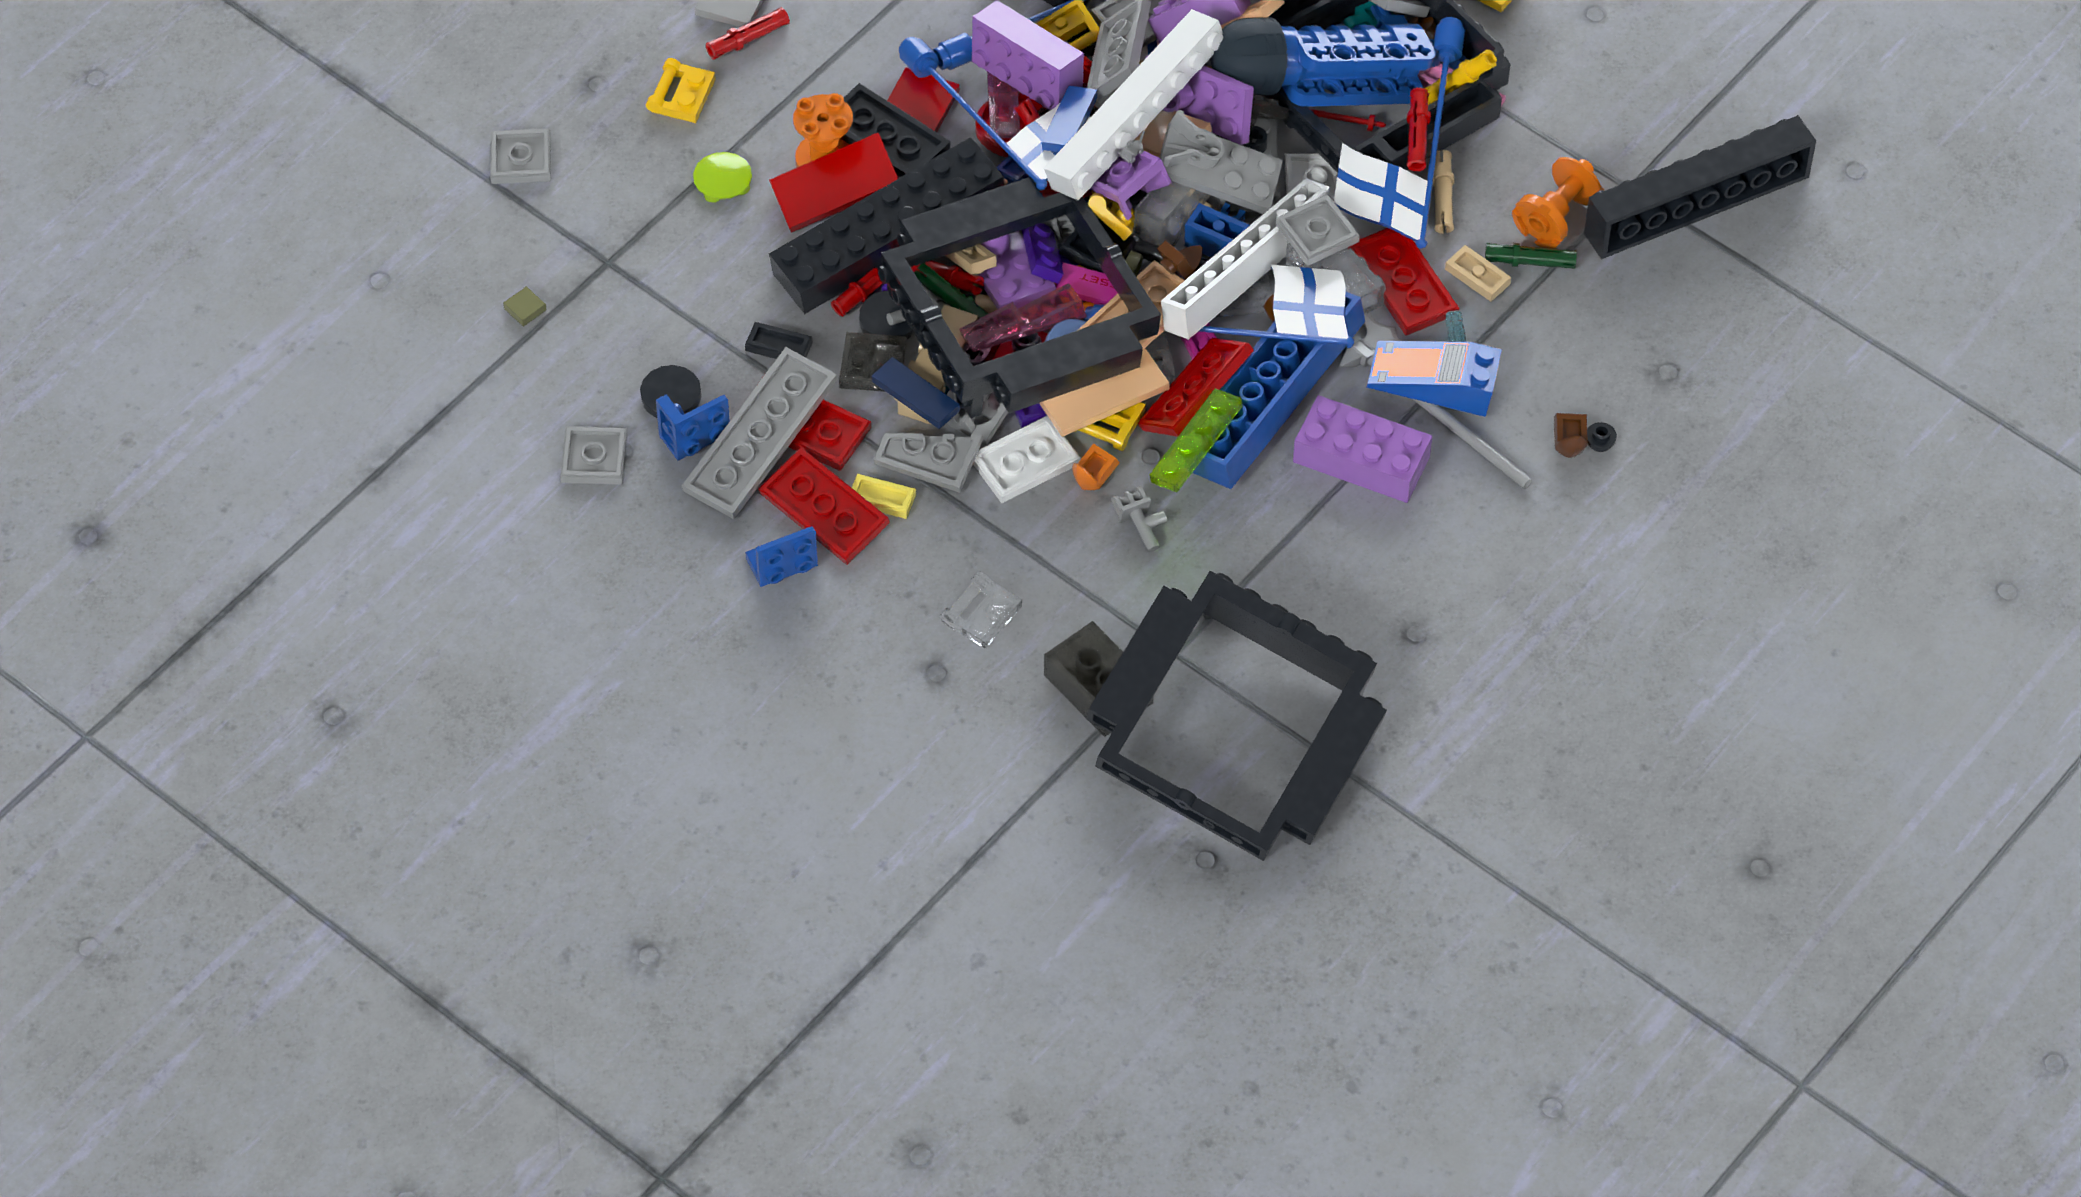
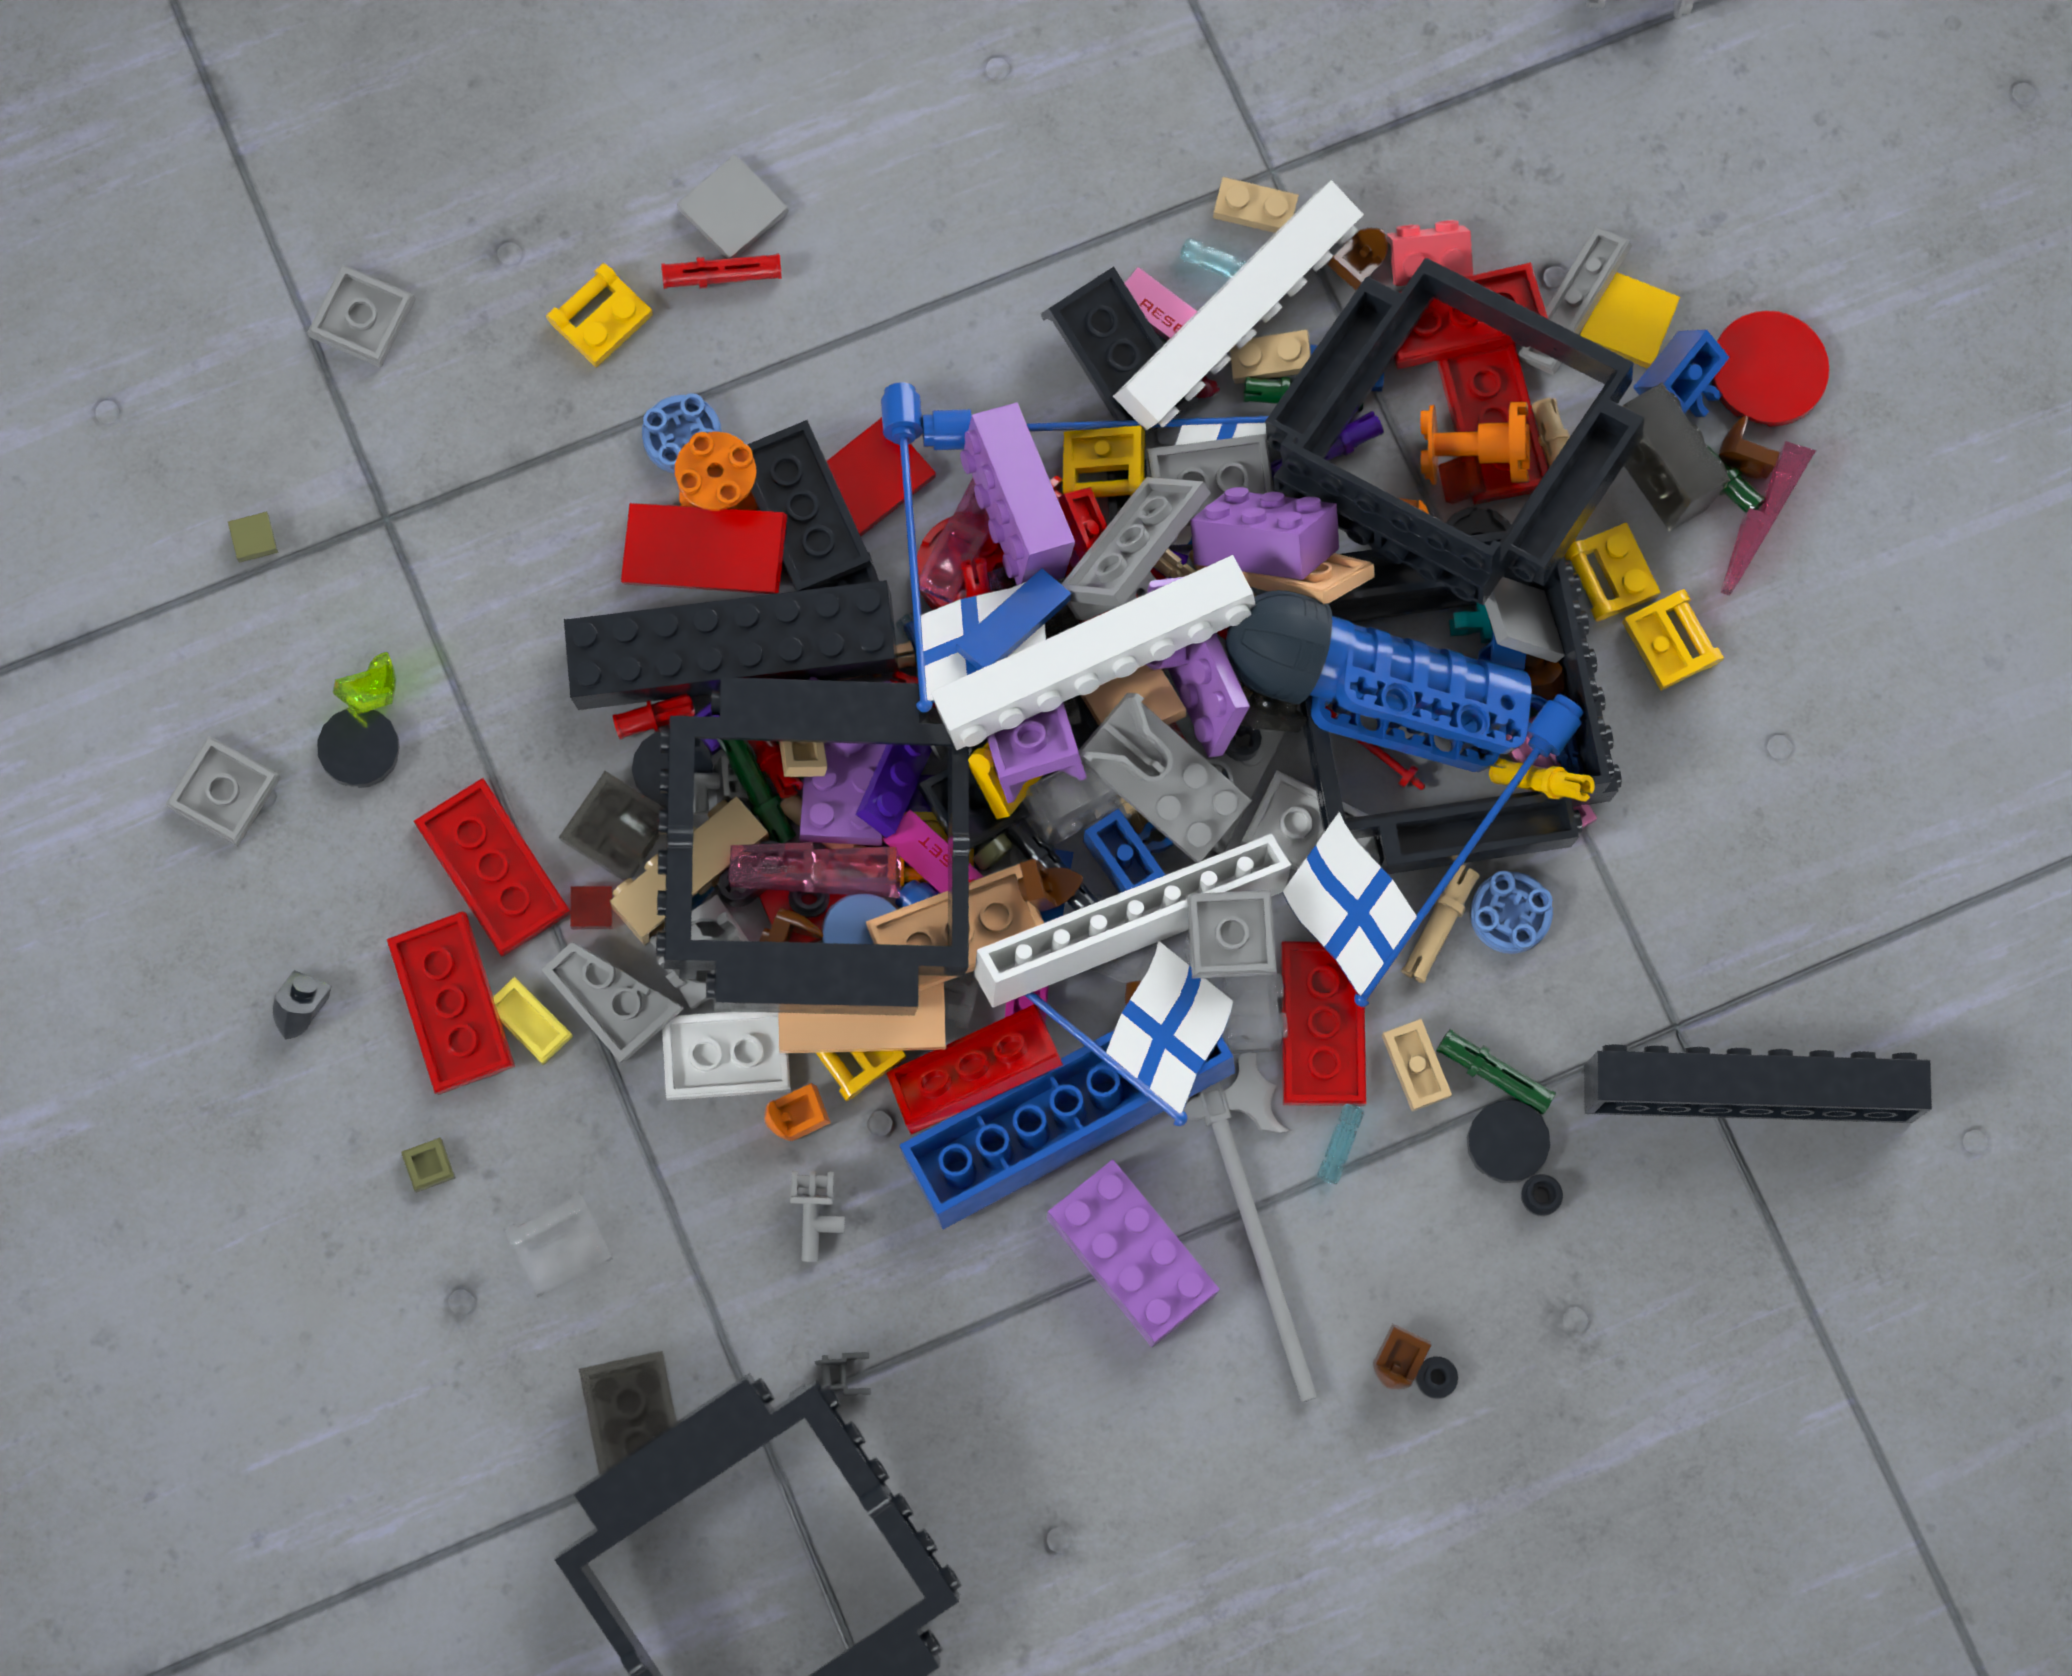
camera: 20 degrees right, 20 degrees up
(662, 348) = (369, 688): none -> clear neon green plate
(691, 431) = (340, 830): blue bracket -> none
(722, 176) = (583, 464): lime dish -> none
(722, 549) = (298, 1003): none -> black plate
(759, 433) = (423, 866): light grey plate -> none
(771, 341) = (523, 740): black tile -> none
(774, 134) = (672, 425): none -> medium blue tile
(784, 557) = (362, 1051): blue bracket -> none
(865, 604) = (428, 1164): none -> olive tile
(884, 416) = (591, 907): none -> clear red tile
(916, 393) = (628, 910): dark blue tile -> none
(1133, 149) = (1058, 717): light grey piece -> none
(1195, 440) = (922, 1158): clear neon green plate -> none
(1418, 118) = (1451, 825): red pin -> none
(1437, 372) = (1280, 1190): slope -> none
(1484, 168) = (1511, 912): none -> medium blue tile
(1545, 215) = (1555, 1026): orange piece -> none
(1563, 291) = (1508, 1141): none -> black tile
(1606, 304) = (1551, 1186): none -> black plate

